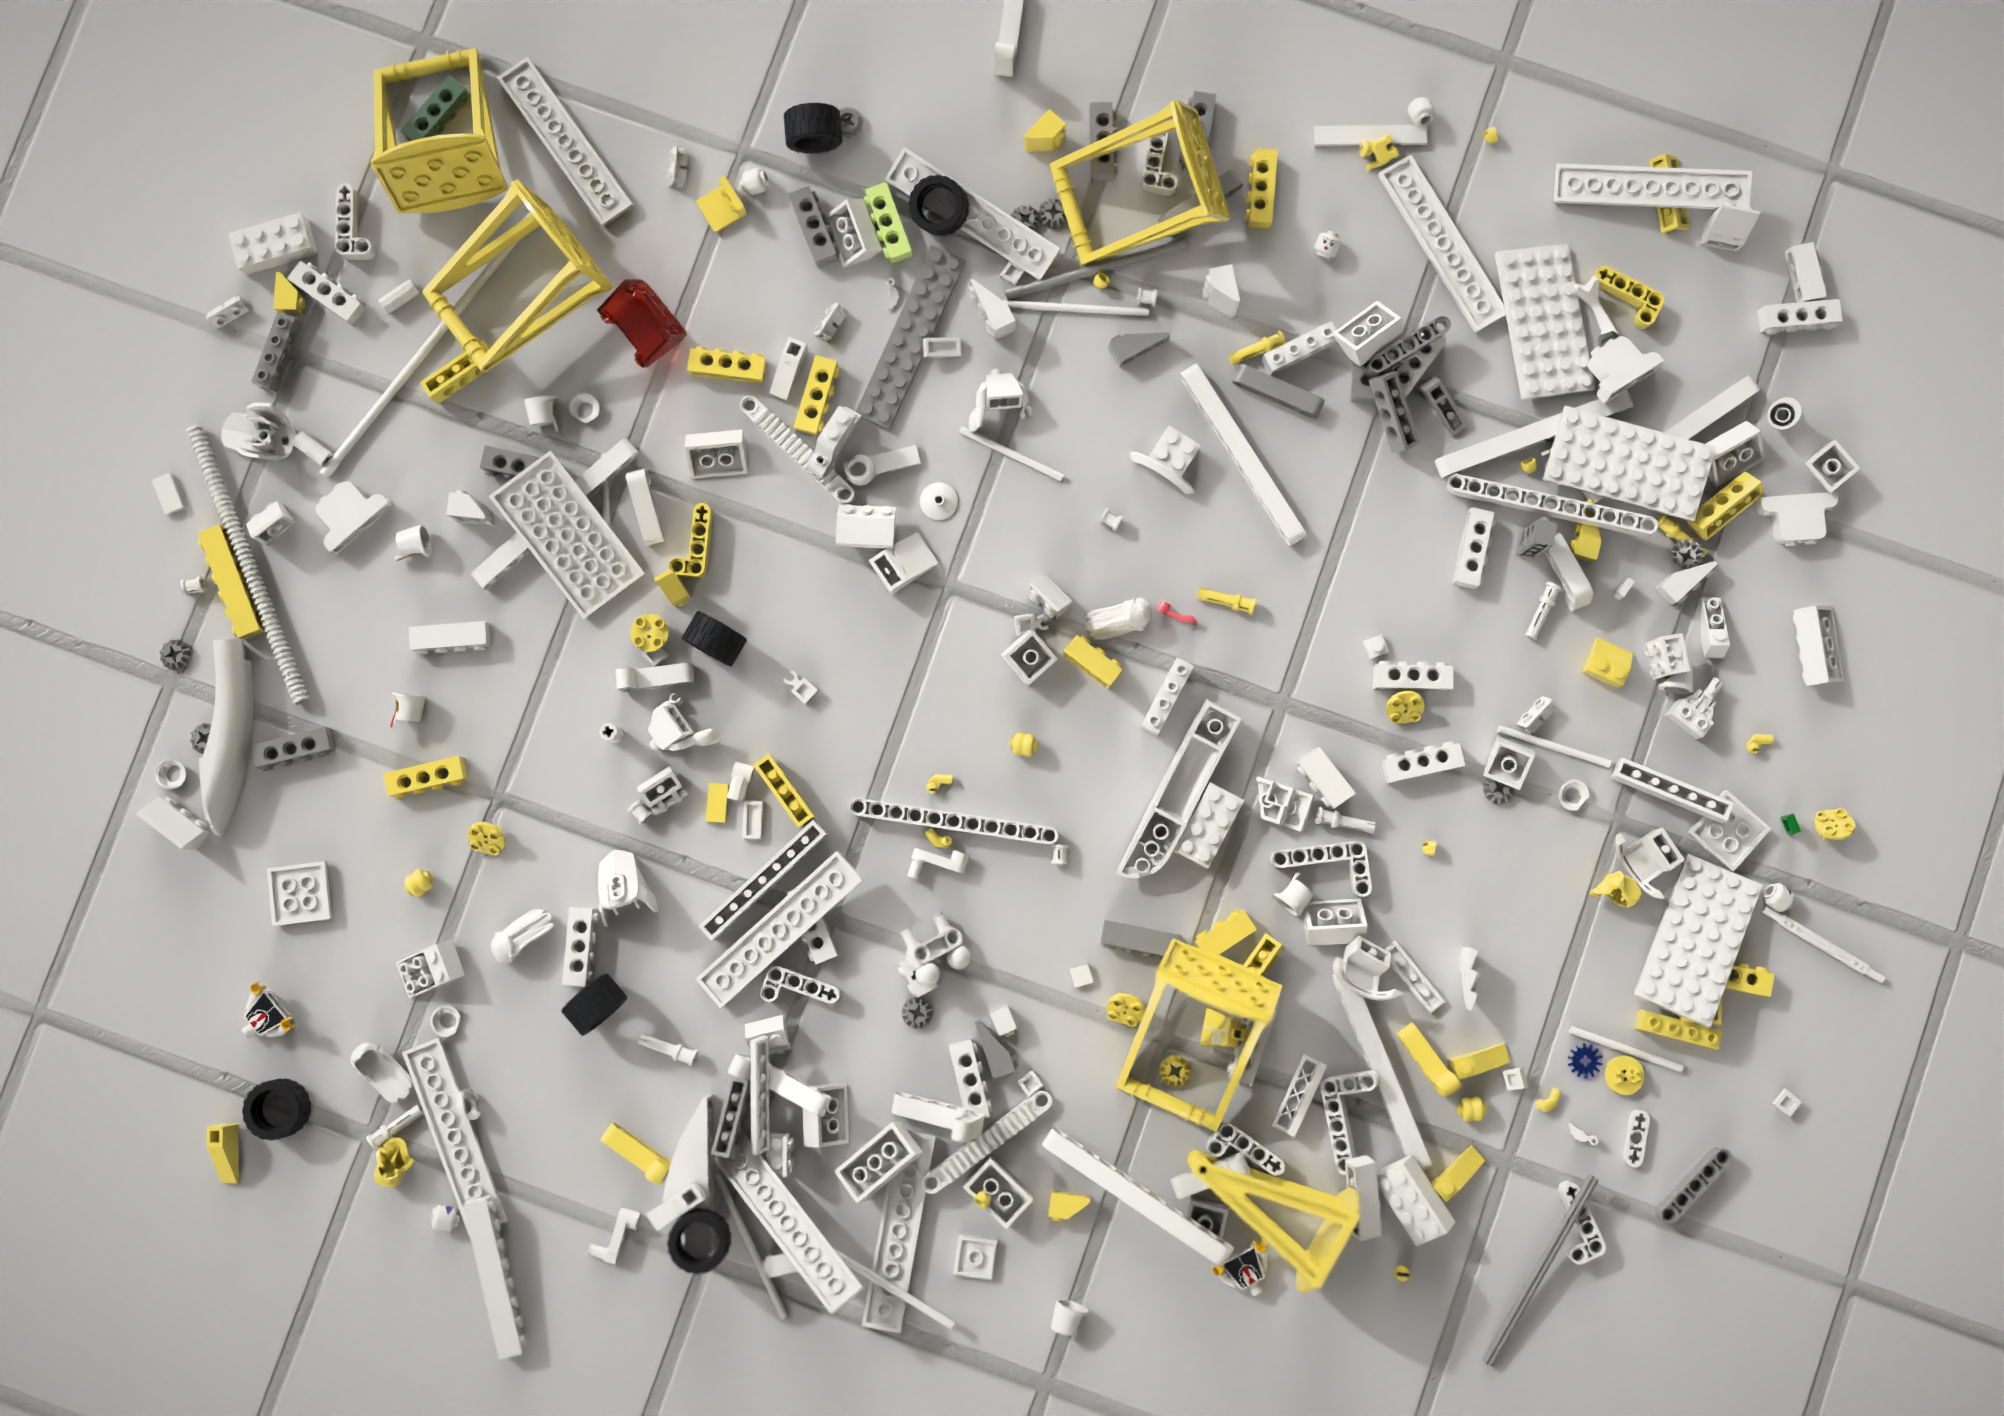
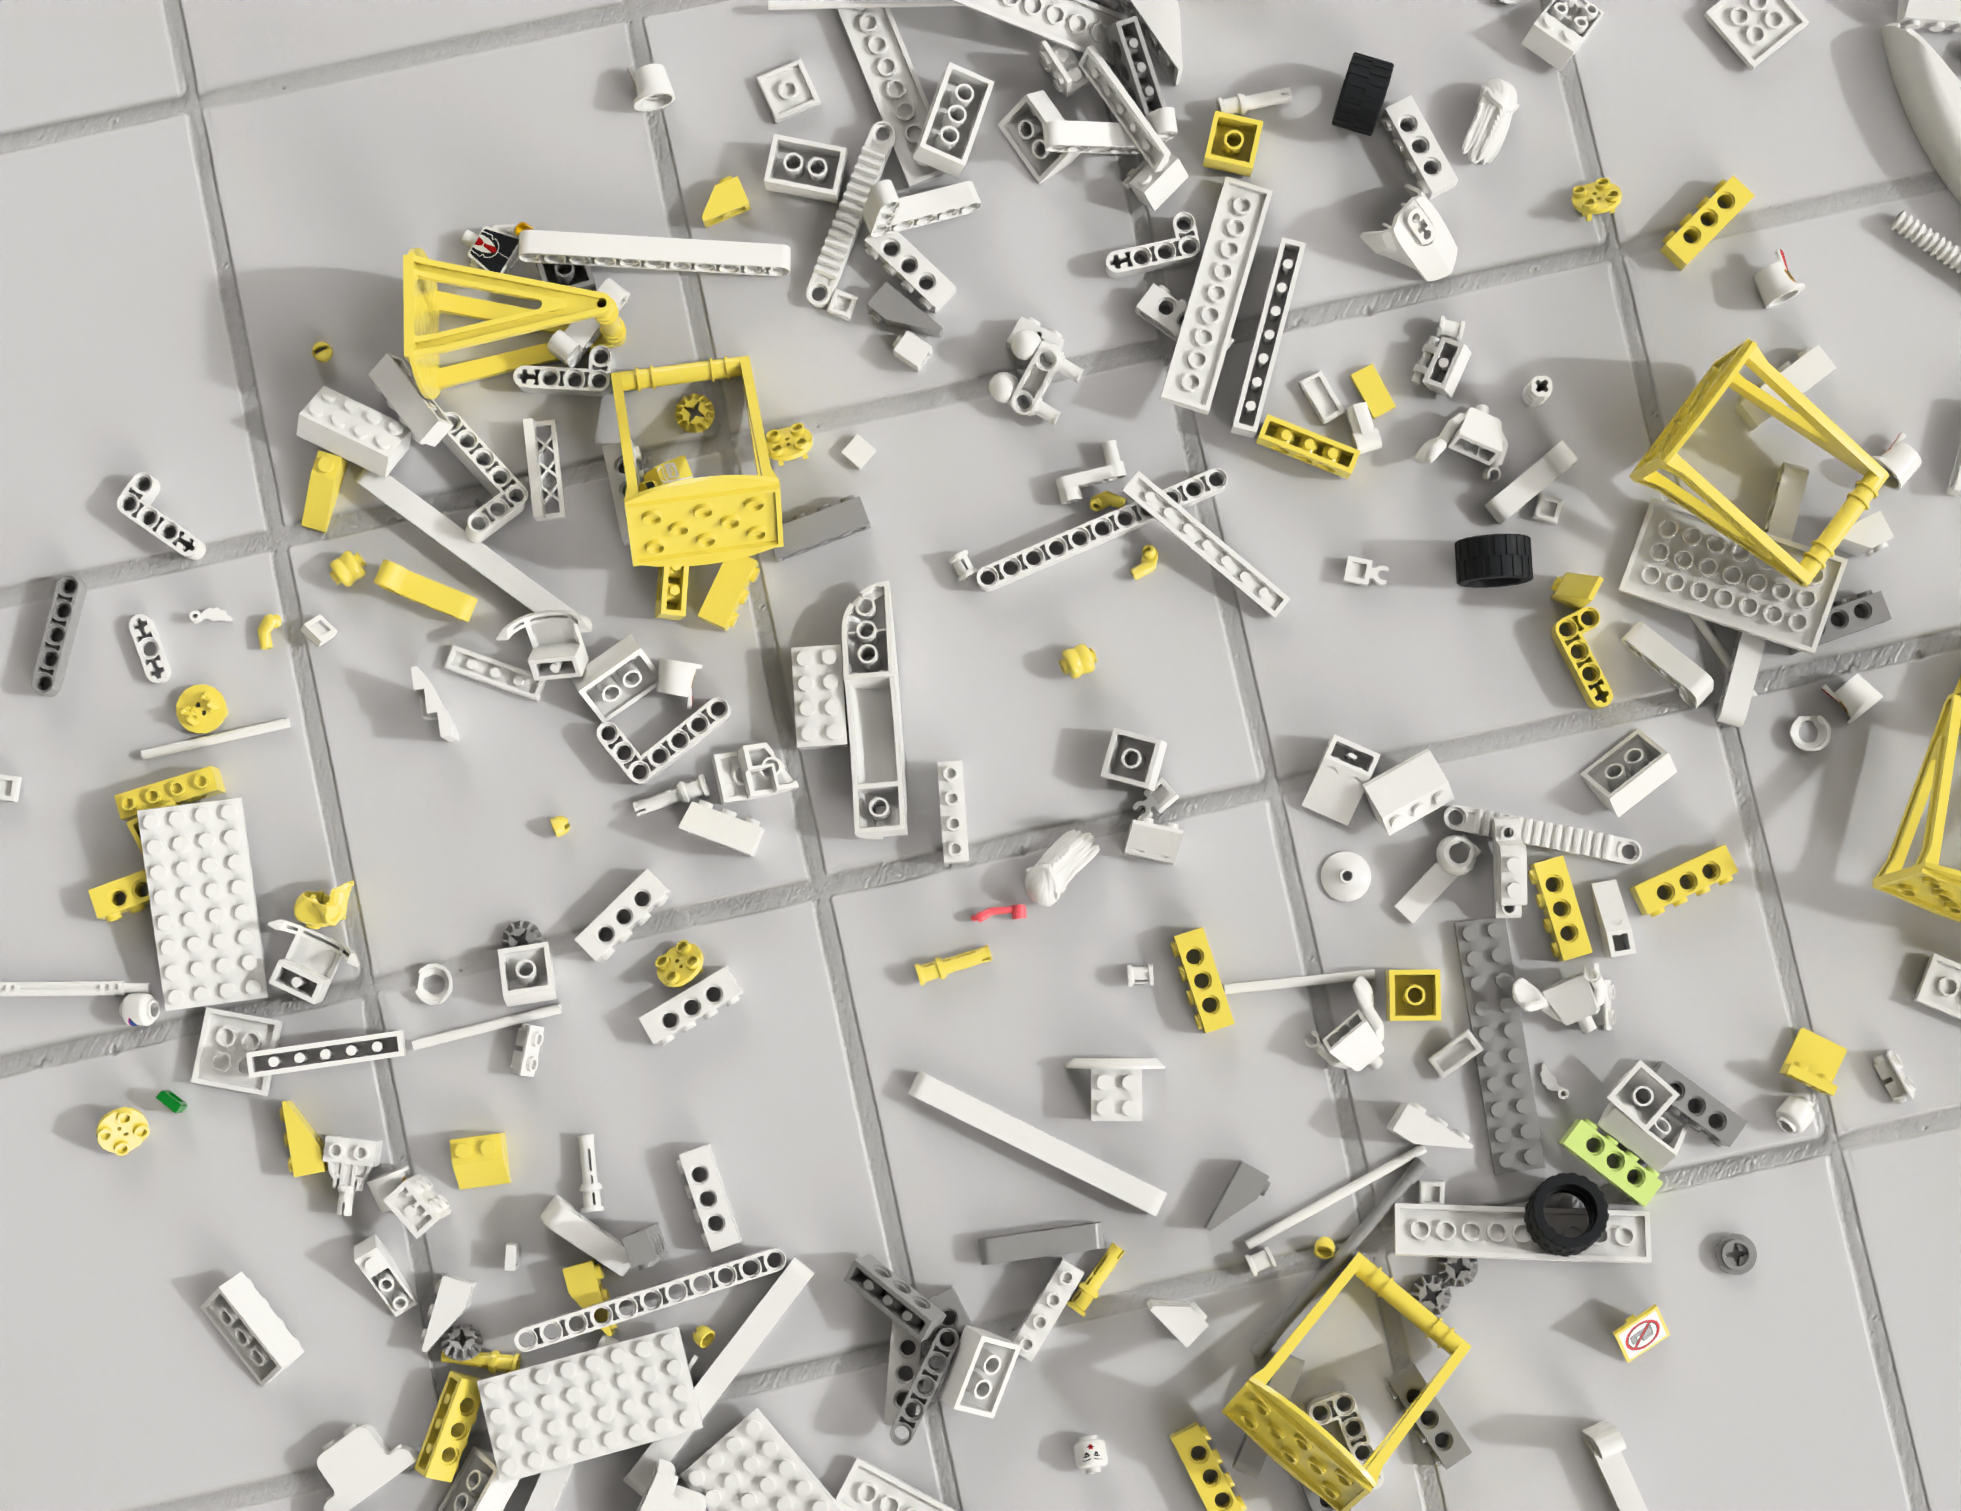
camera: 145 degrees right, 0 degrees up
(263, 751) = (1898, 137): light grey brick -> none
(418, 883) = (1636, 107): light yellow piece -> none
(526, 646) = (1809, 423): none -> light yellow piece
(640, 632) = (1579, 520): light yellow plate -> none
(642, 320) = (1811, 873): clear red windscreen -> none
(701, 1027) = (1232, 143): none -> light yellow brick
(812, 128) = (1770, 1215): black tyre -> none
(844, 247) = (1642, 1095): none -> white slope
(850, 337) = (1566, 1000): none -> white torso
(893, 768) = (1205, 544): none -> white plate
(925, 1008) = (1004, 312): light grey gear -> none
(938, 110) = (1641, 1333): none -> piece
(945, 398) = (1413, 995): none -> light yellow brick
(982, 1199) = (817, 145): light yellow hinge -> none
(1045, 133) = (1499, 1381): light yellow slope -> none
(1076, 461) = (1221, 1016): none -> light yellow brick
(1092, 661) = (1059, 799): light yellow slope -> none
(1375, 646) = (753, 1016): white plate -> none
(1443, 405) = (843, 1345): light grey slope -> none
(1479, 1061) = (369, 625): light yellow slope -> none
(1540, 1270) = (174, 447): light grey axle -> none
(1579, 1054) = (251, 708): clear blue gear -> none
(1718, 743) = (303, 1142): none -> light yellow slope
(1756, 741) = (262, 1173): light yellow arm -> none

